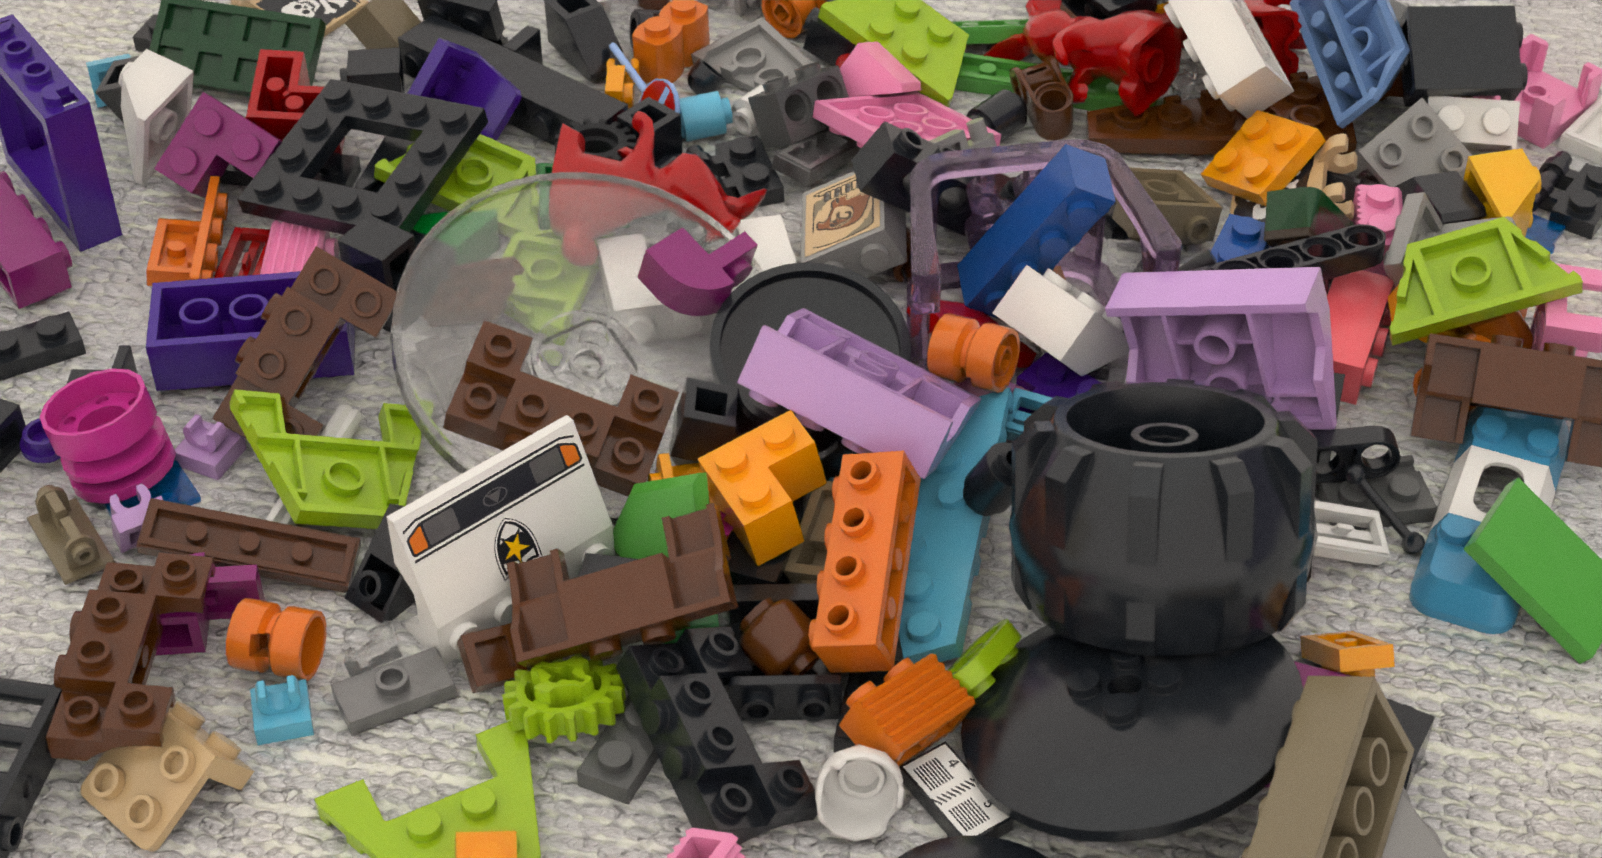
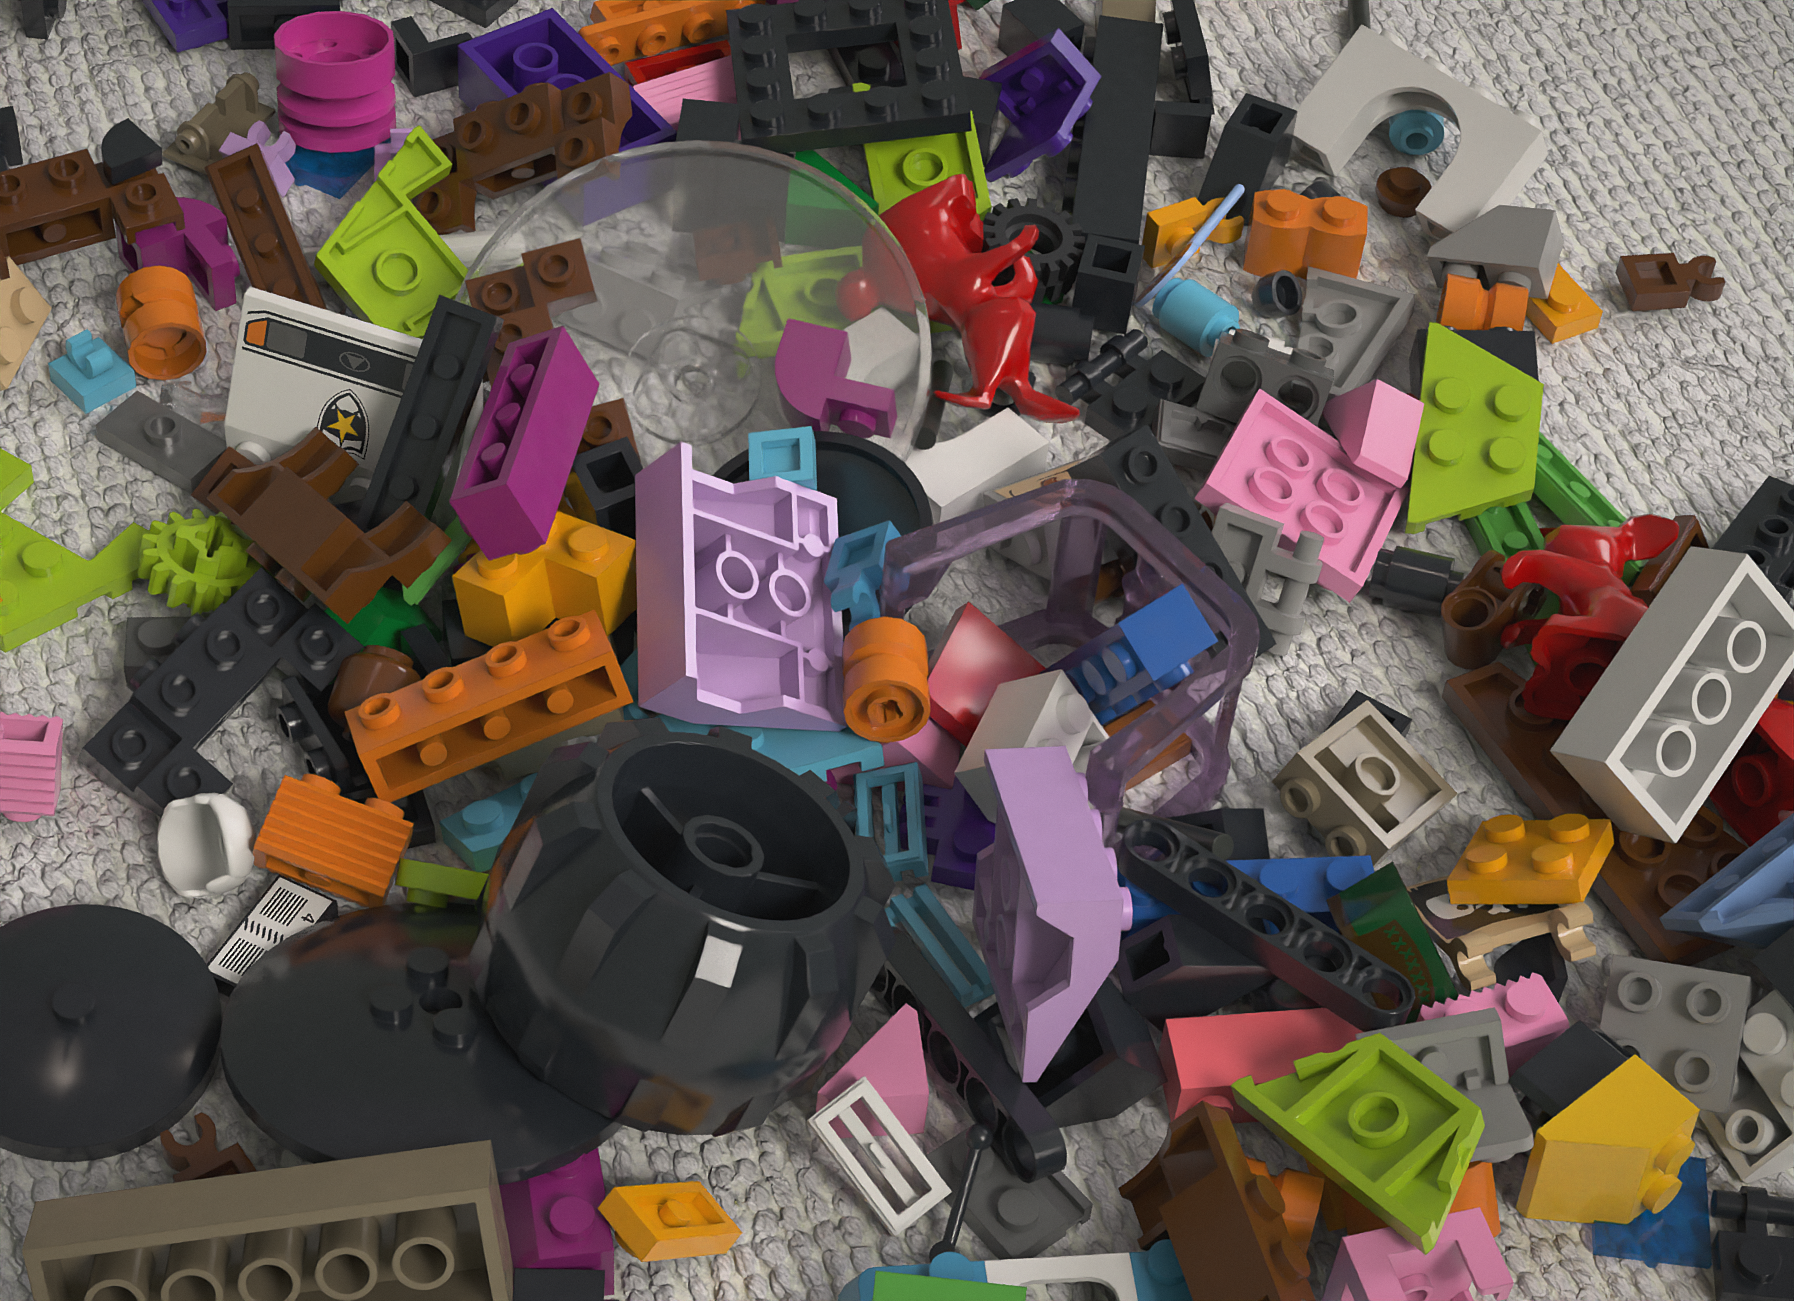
camera: 55 degrees right, 5 degrees up
(117, 564) = (128, 152): none -> black tile
(592, 470) = (431, 412): none -> black plate
(681, 417) = (525, 444): none -> magenta brick
(759, 308) = (784, 454): none -> medium azure tile
(879, 316) = (857, 571): none -> dark azure plate

